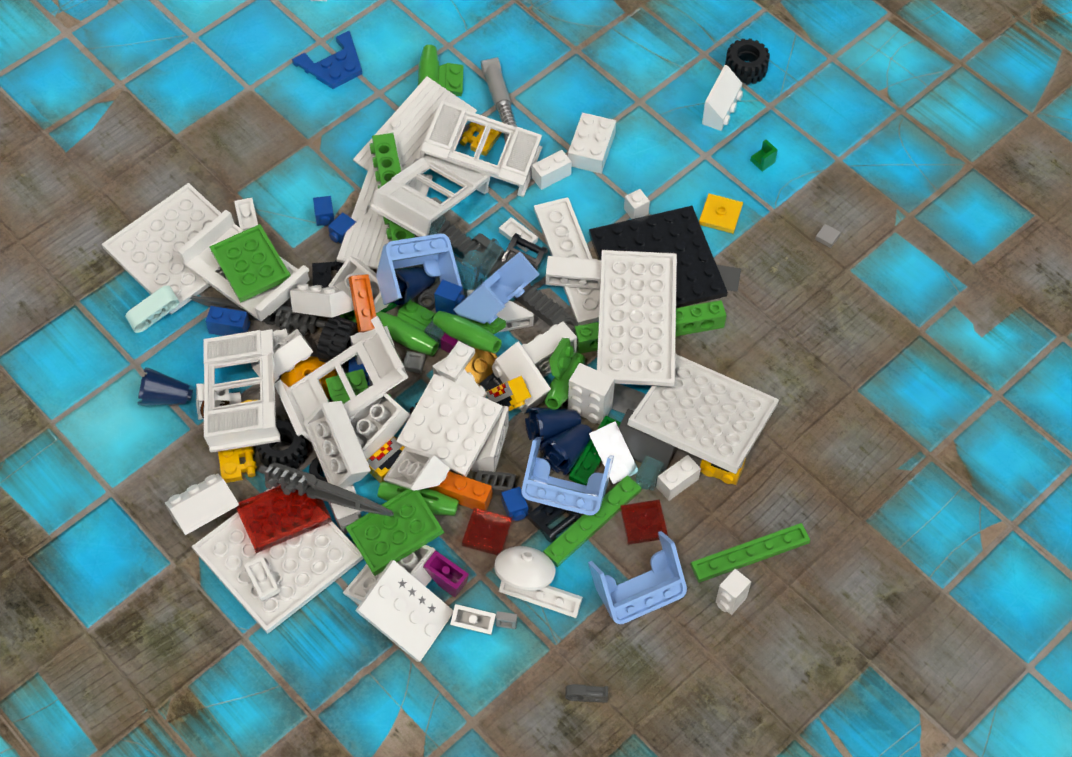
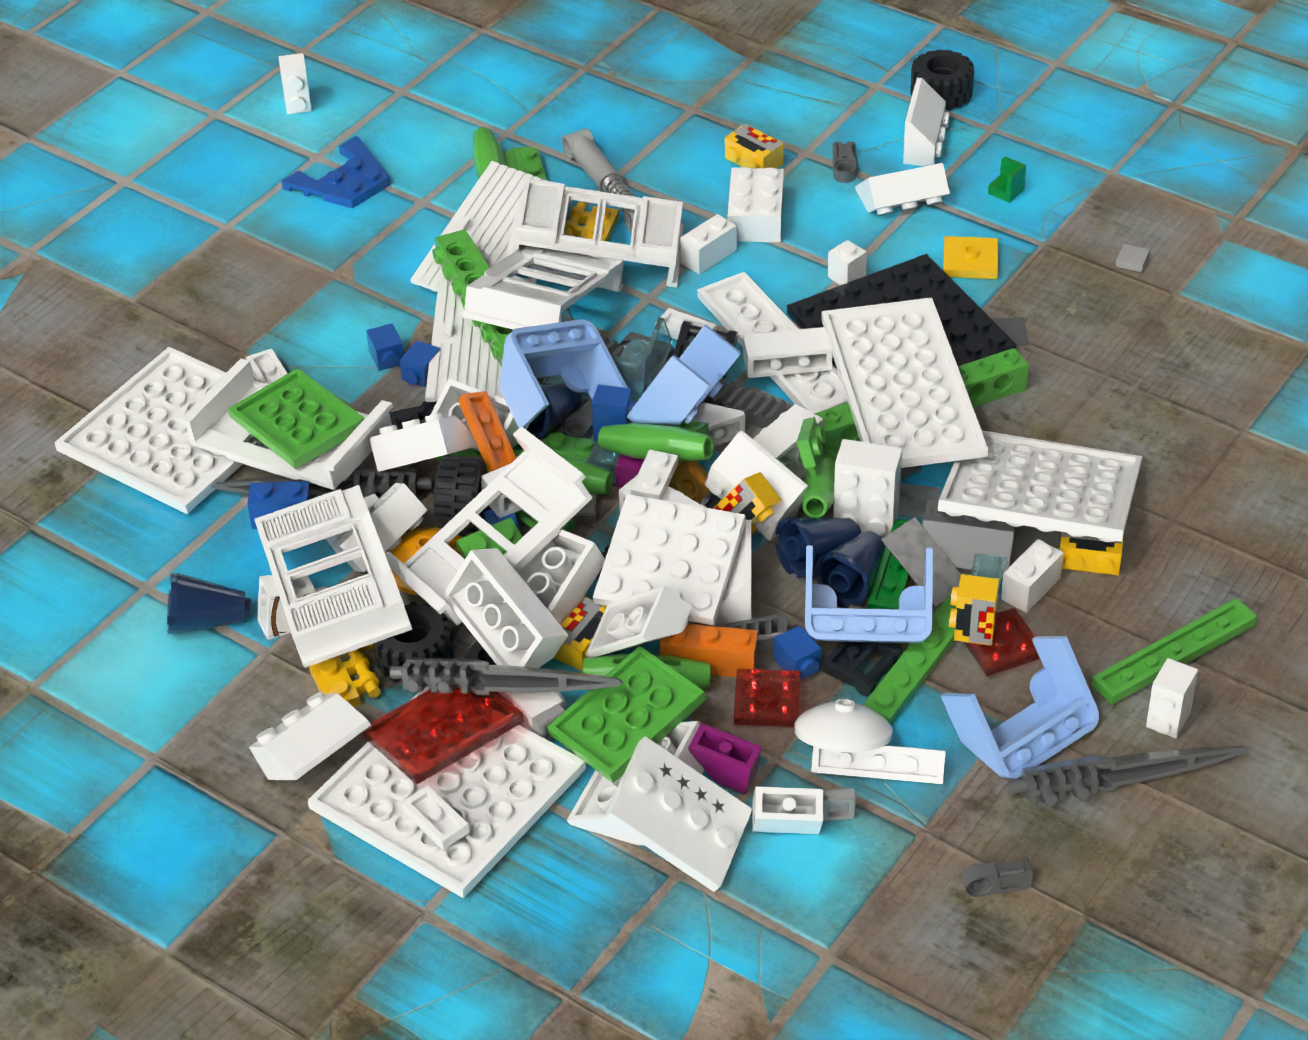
camera: 10 degrees left, 15 degrees down
(152, 309) = (157, 506): light aqua beam -> none
(604, 96) = (753, 148): none -> yellow brick
(628, 502) = (975, 609): none -> brick
(662, 114) = (844, 160): none -> dark grey piece
(681, 633) = (1106, 773): none -> dark grey piece
(693, 149) = (904, 189): none -> white slope

